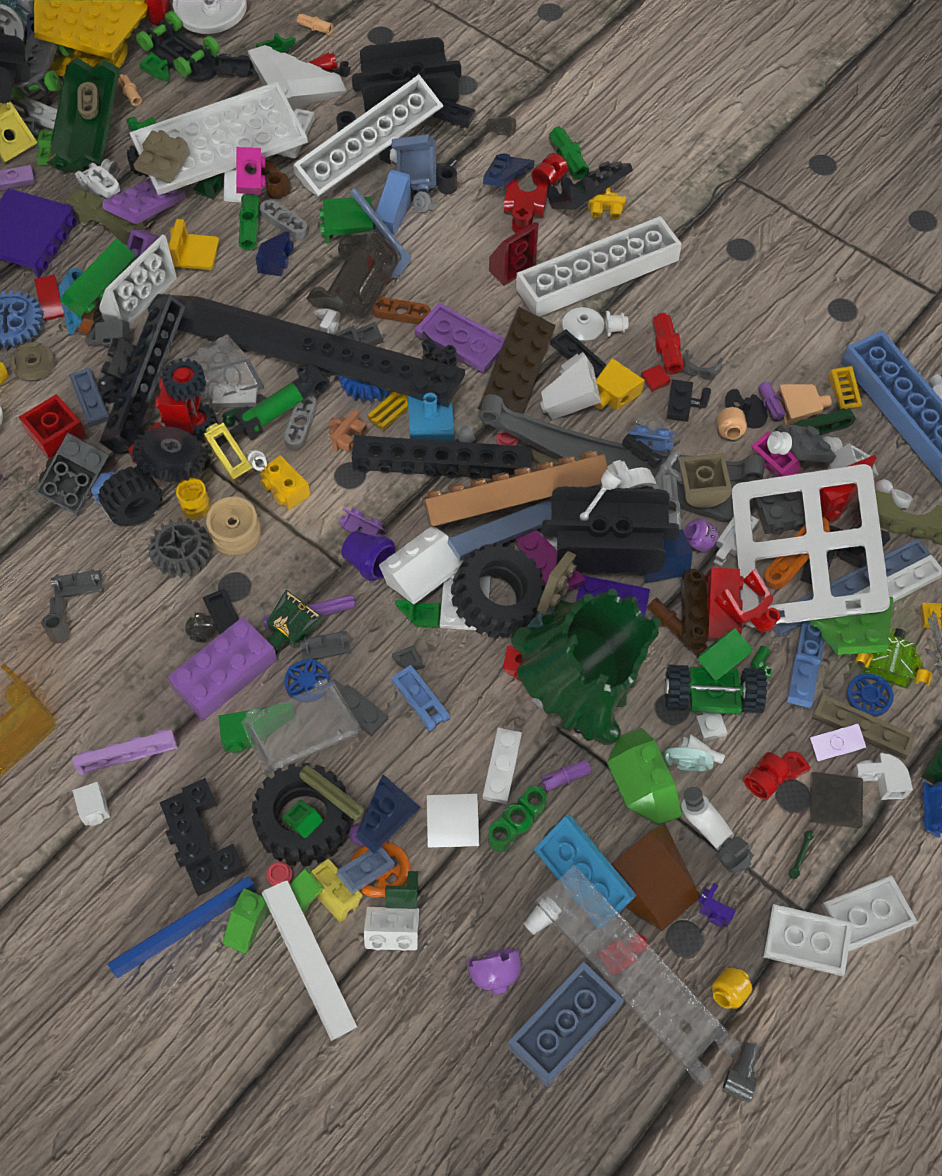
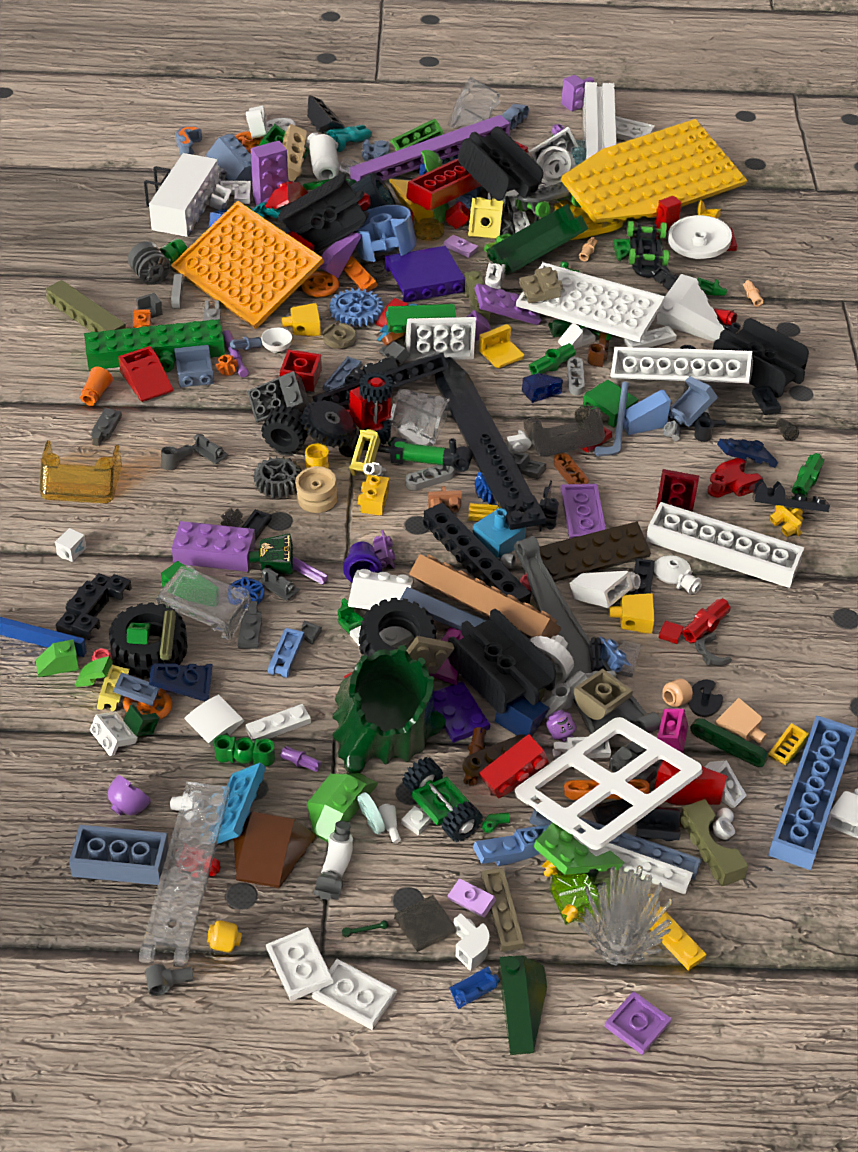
camera: 50 degrees right, 15 degrees down
(88, 104) = (550, 234): dark tan plate -> none
(110, 166) = (515, 273): white bush -> none
(121, 753) = (117, 539): lavender plate -> none
(249, 158) = (584, 320): dark pink brick -> none
(309, 960) = (54, 701): white tile -> none
(549, 170) = (772, 473): red wheel -> none
(609, 481) = (525, 627): white hinge -> none
(681, 400) = (669, 655): black plate -> none
(714, 910) = (275, 889): dark purple bracket -> none
(724, 654) = (471, 783): green panel -> none
(760, 616) = (521, 783): red piece -> none
(766, 775) = (403, 868): red wheel -> none
(771, 400) = (724, 704): medium lavender axle -> none
(796, 763) = (431, 885): red tile -> none
(804, 443) = (697, 735): dark grey plate -> none
(870, 694) = (534, 901): blue wheel -> none

